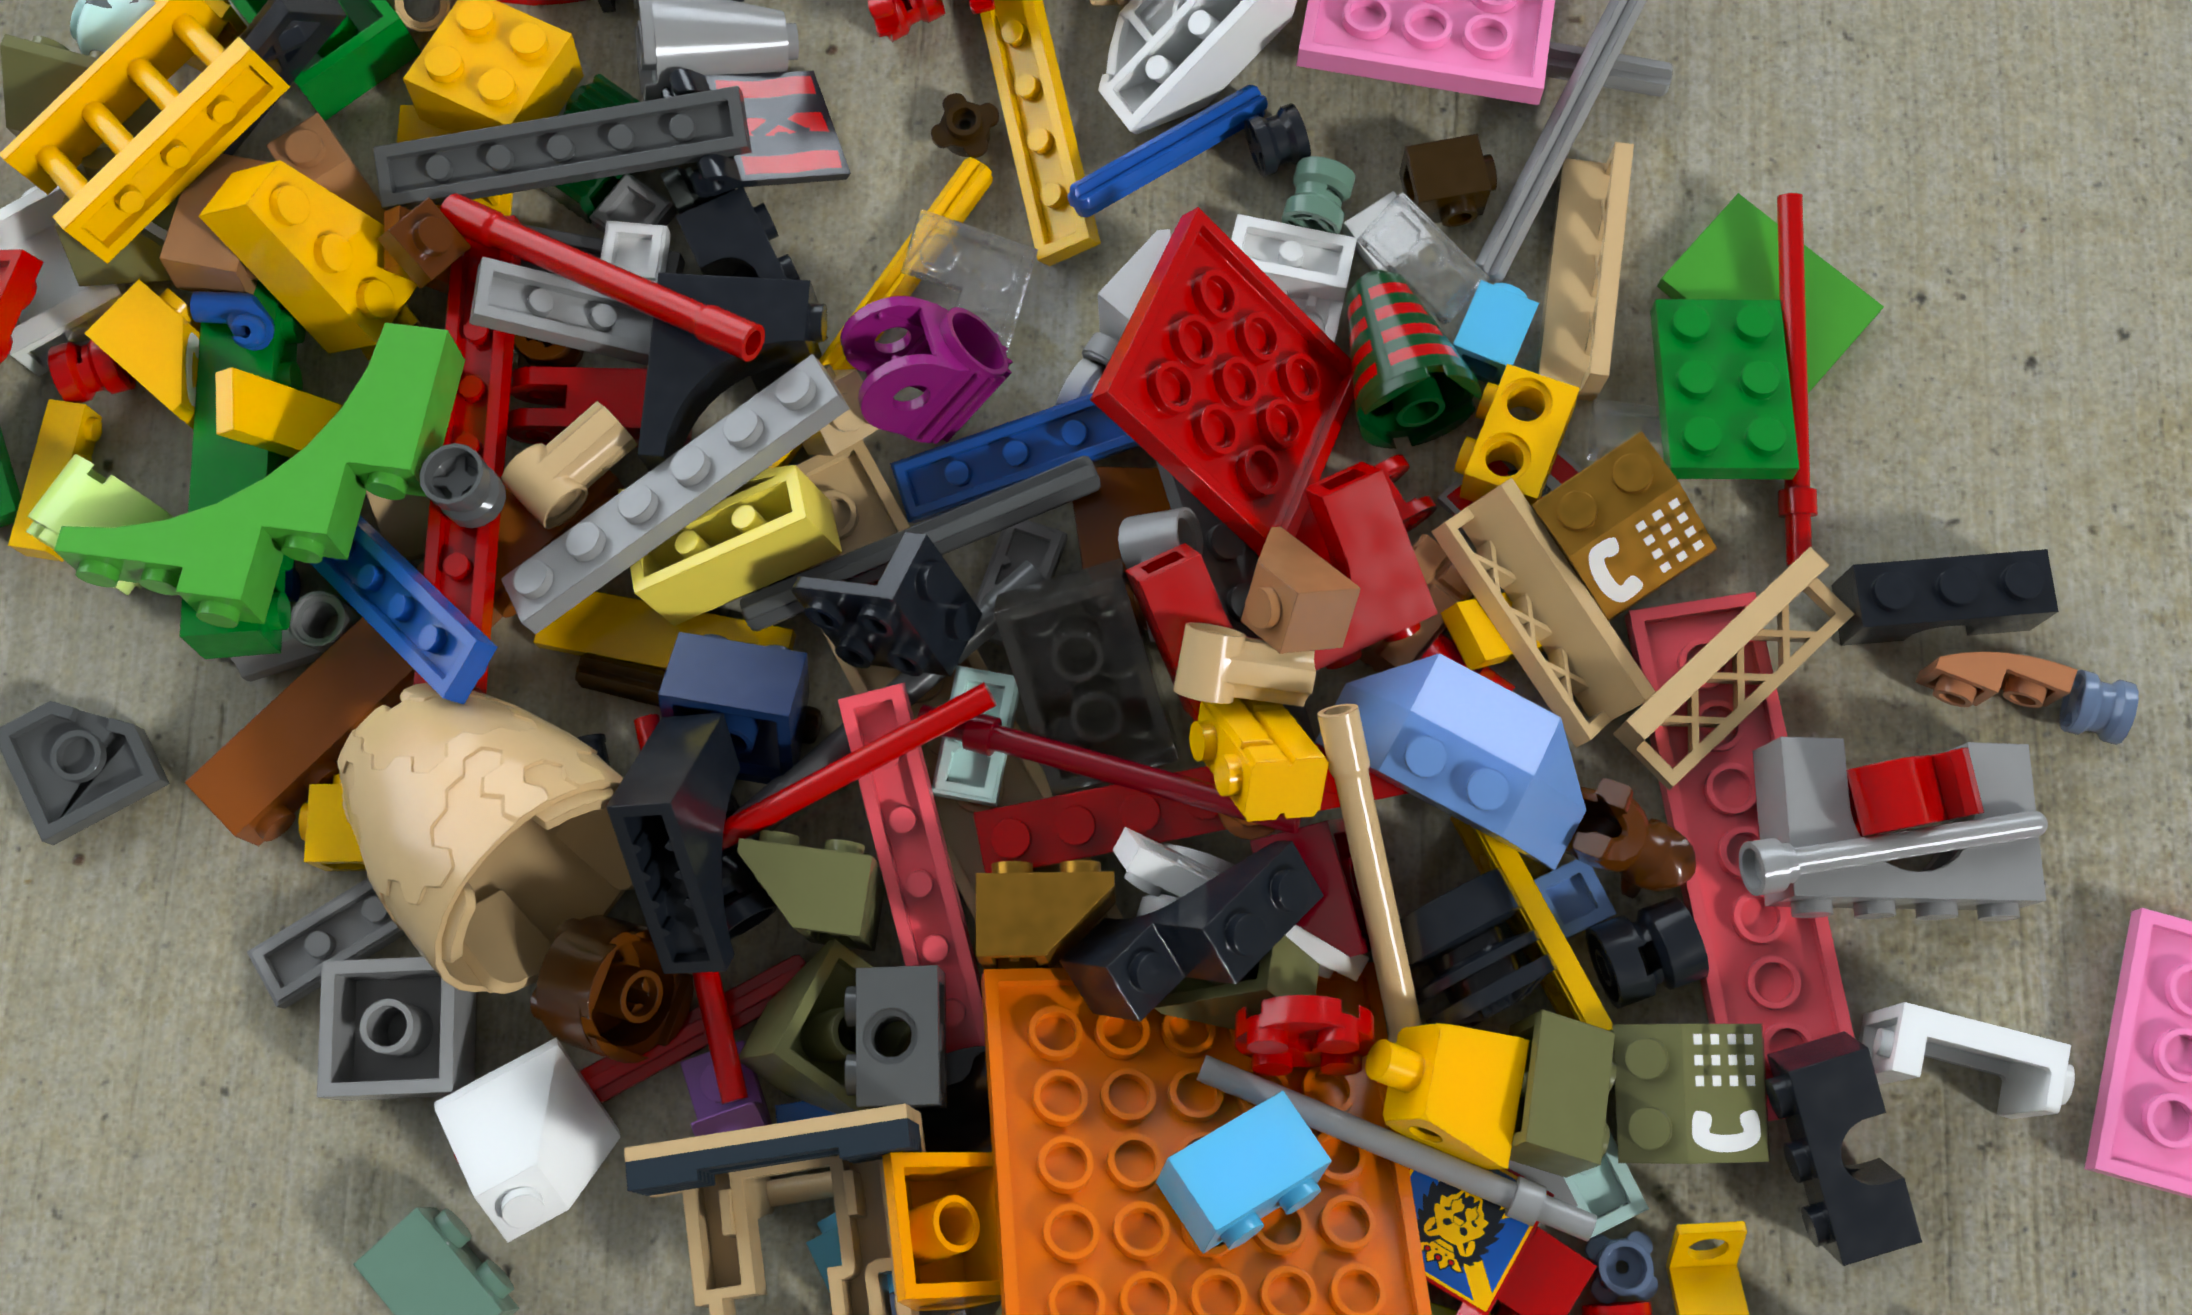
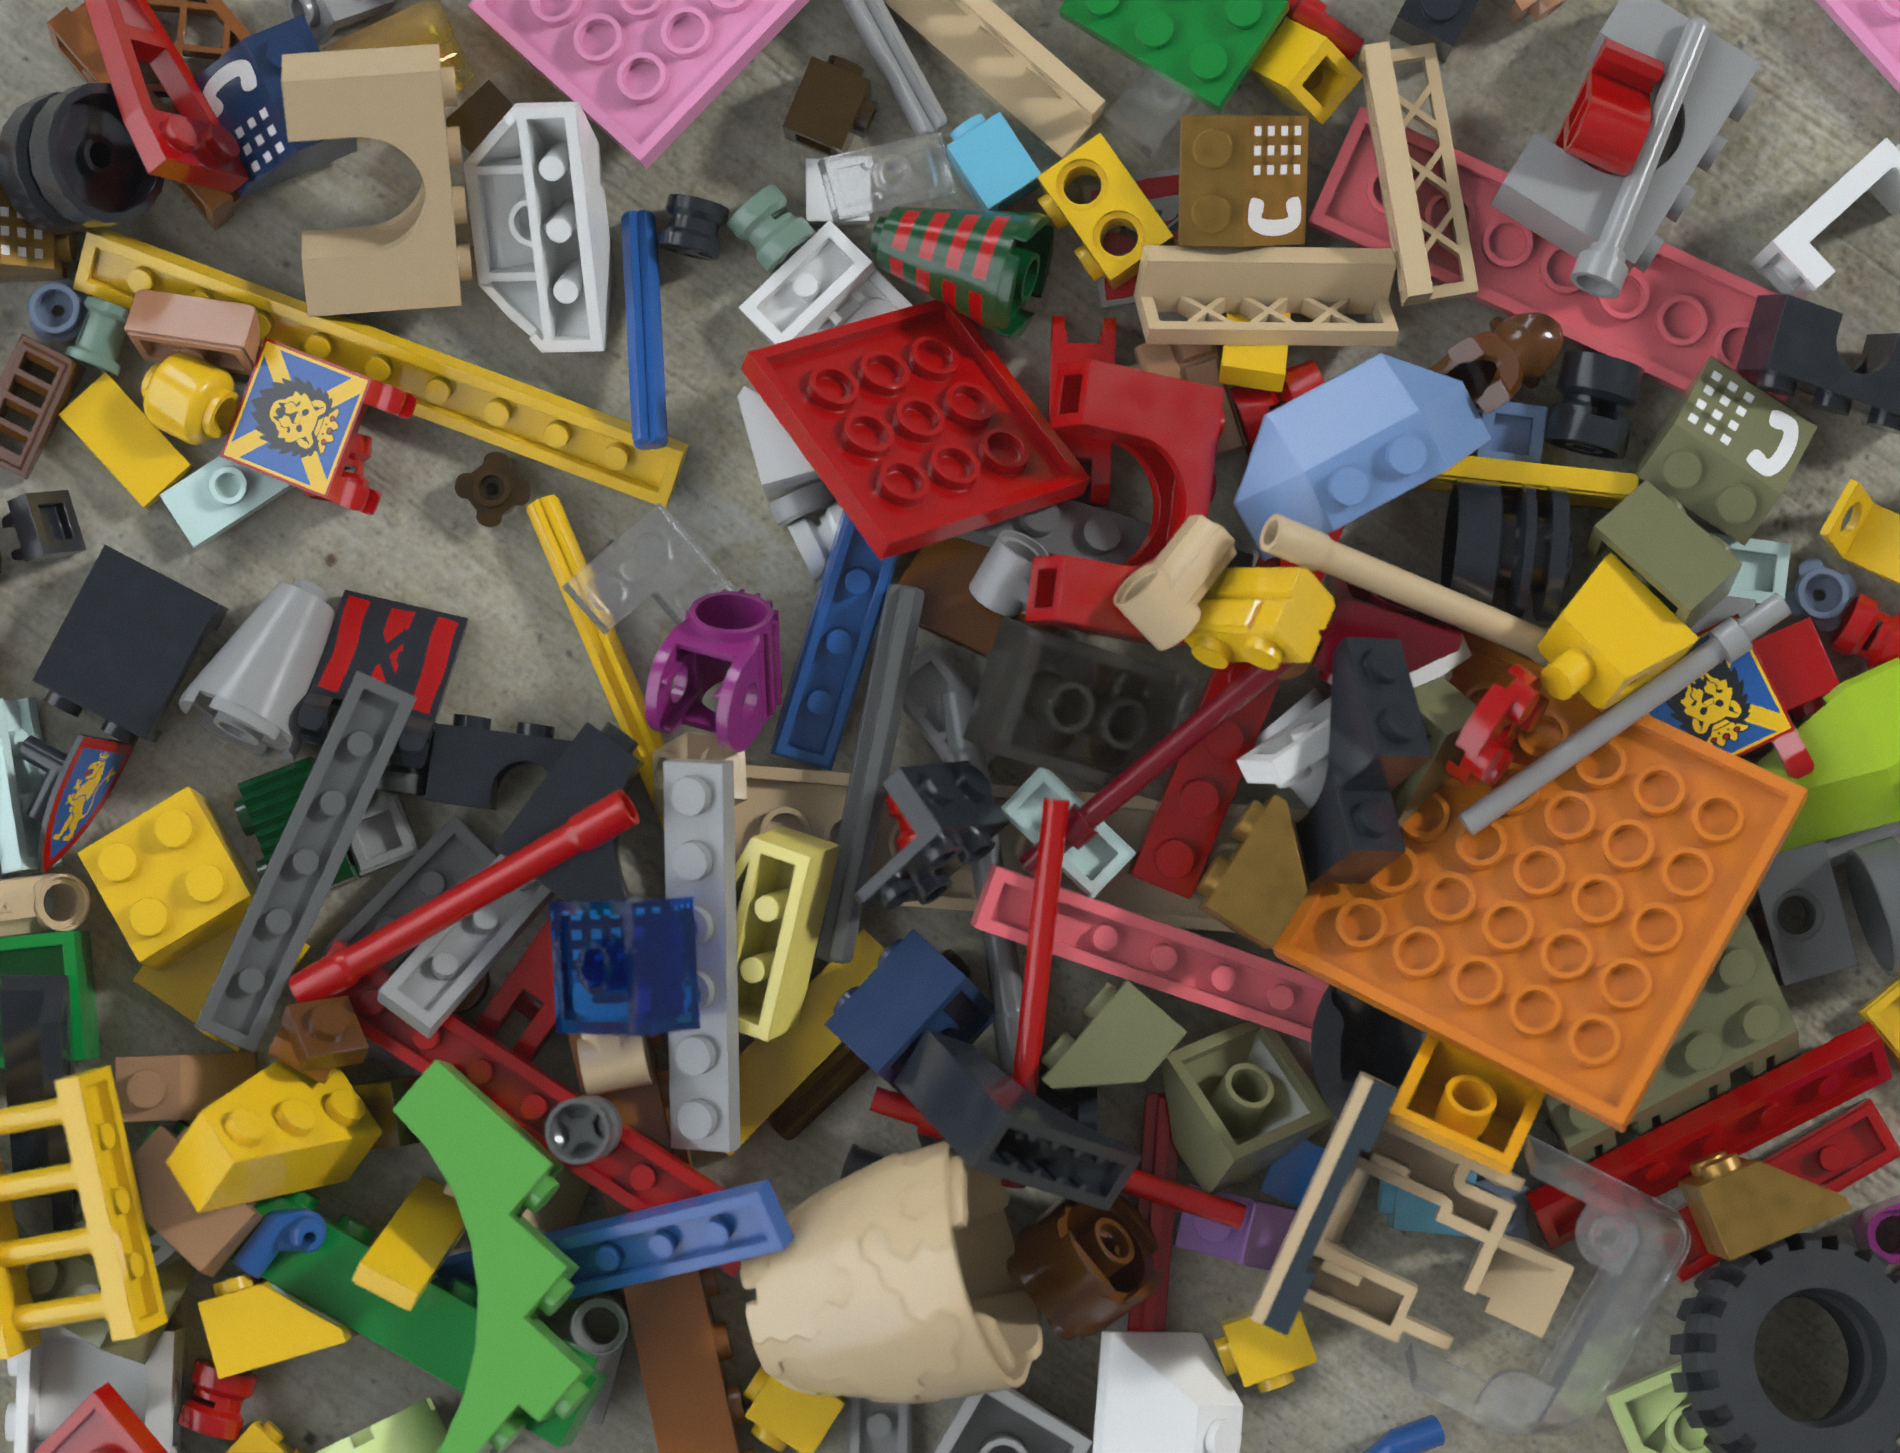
camera: 60 degrees left, 10 degrees up
(620, 431) = (625, 965): none -> clear blue slope
(630, 1214) = (1261, 1353): none -> yellow brick
(637, 247) = (433, 857): white tile -> none
(890, 996) = (1323, 1056): dark grey brick -> none
(1244, 1173) = (1575, 846): medium azure brick -> none
(1298, 597) = (1143, 498): medium nougat slope -> none
(1751, 525) = (1305, 71): none -> yellow brick

